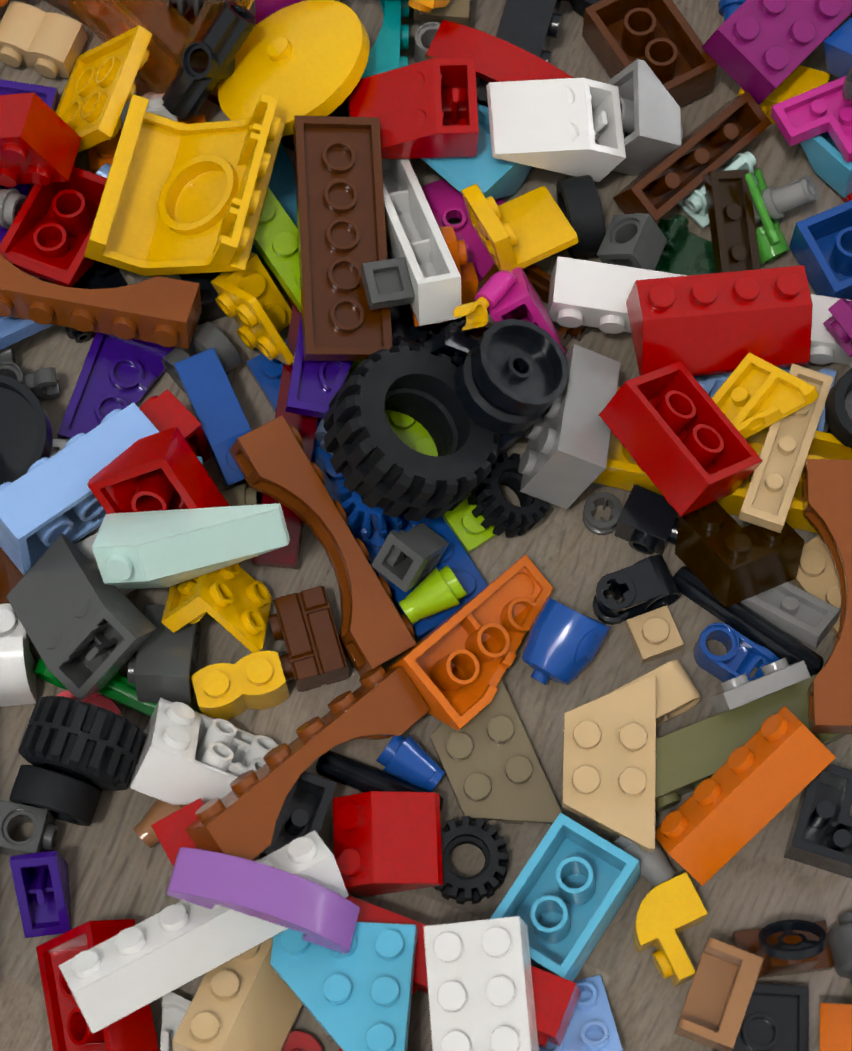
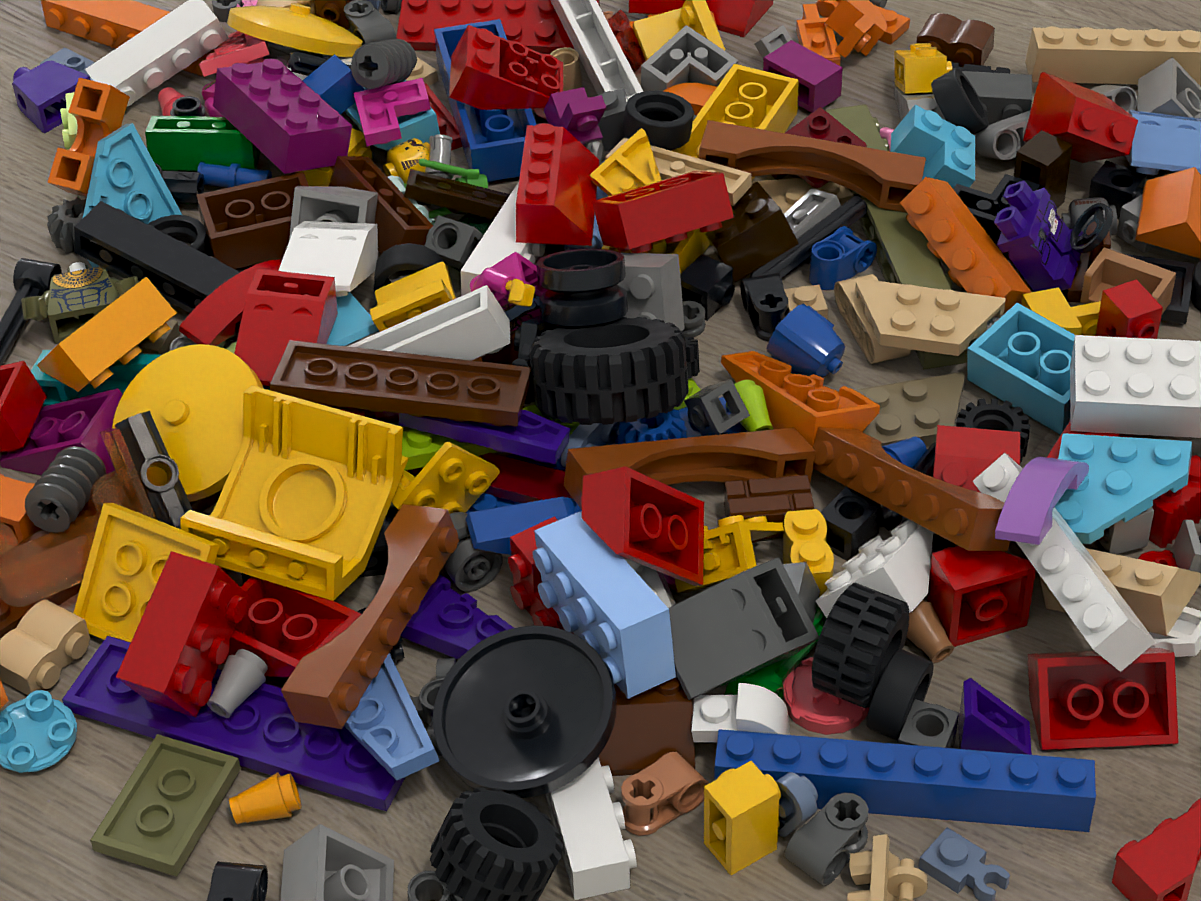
camera: 80 degrees left, 25 degrees down
(183, 544) = (688, 521): light aqua wedge -> none
(287, 709) = (851, 522): none -> black brick
(387, 283) = (467, 348): dark grey plate -> none
(647, 999) = (1128, 312): none -> red brick
(775, 677) = (875, 225): light grey plate -> none
(781, 864) = (1036, 238): none -> dark purple hips
(788, 164) = (406, 157): none -> yellow head

